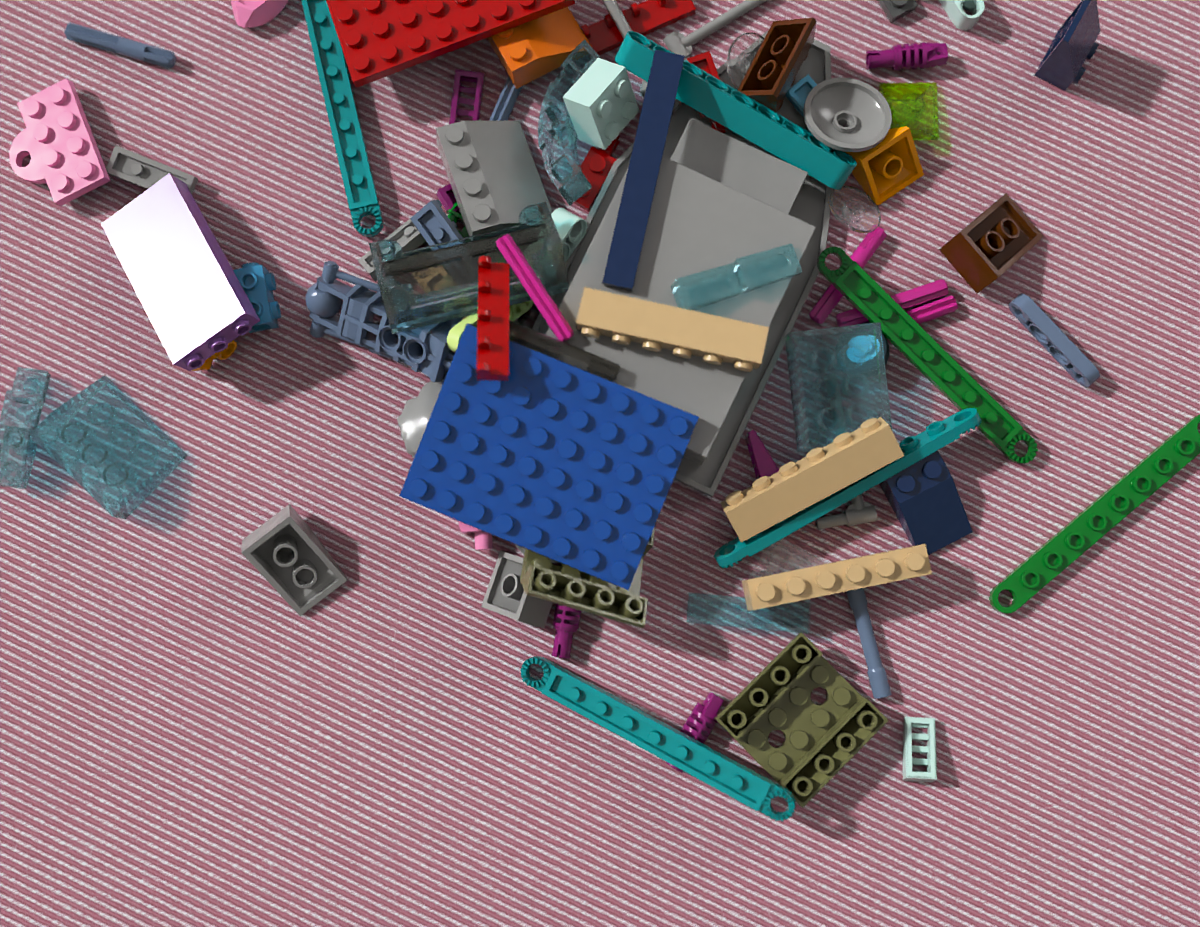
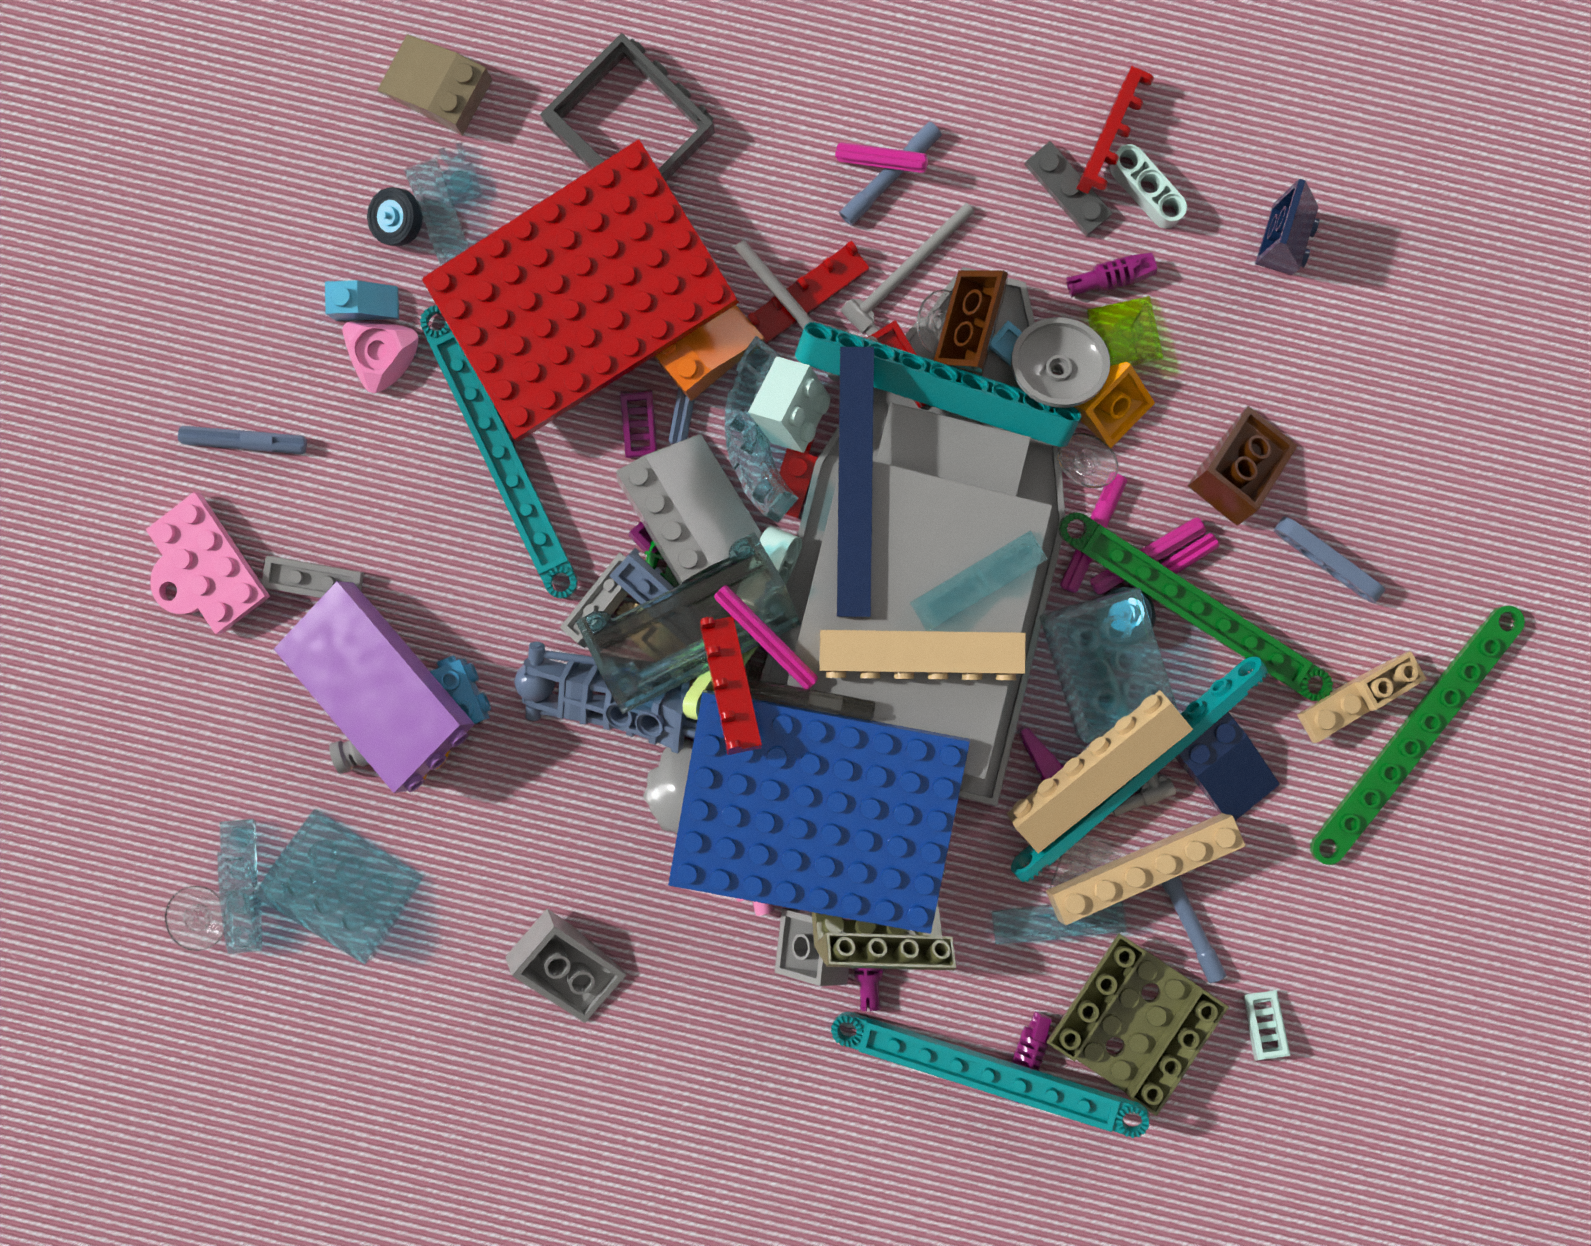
camera: 10 degrees left, 5 degrees up
(142, 332) = (345, 756): none -> light grey wheel
(1061, 466) = (1361, 695): none -> tan slope

